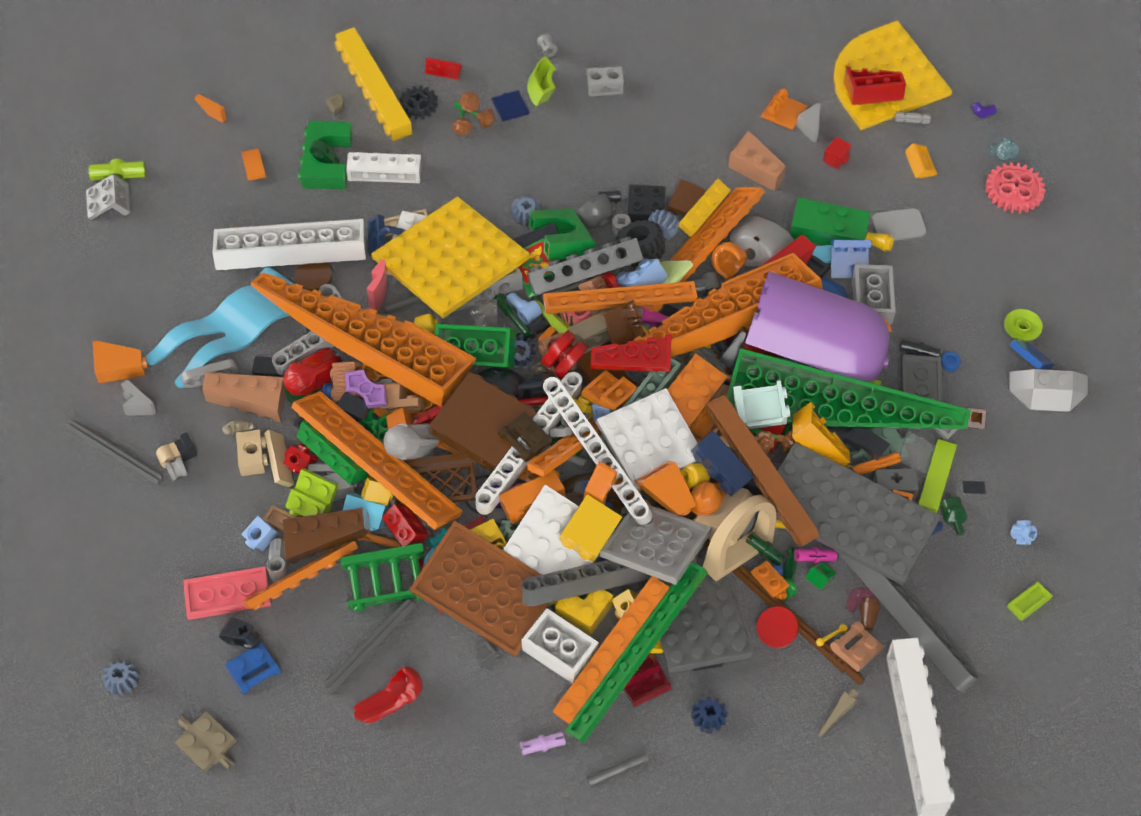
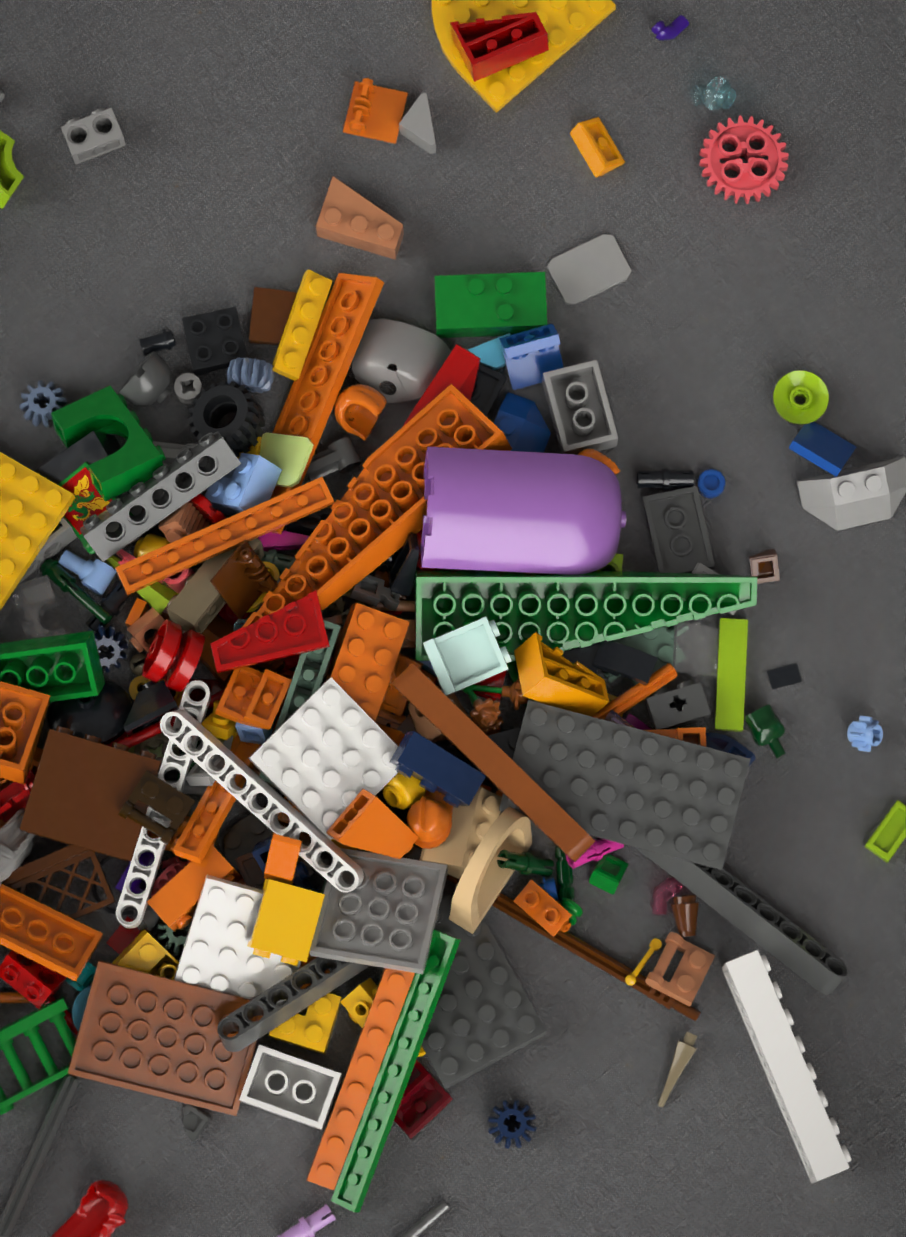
camera: 15 degrees left, 20 degrees up
(777, 627) = (569, 972): red tile -> none
(837, 153) = (472, 171): red brick -> none
(881, 241) = (569, 309): yellow cone -> none
(912, 117) = (568, 71): light grey axle -> none

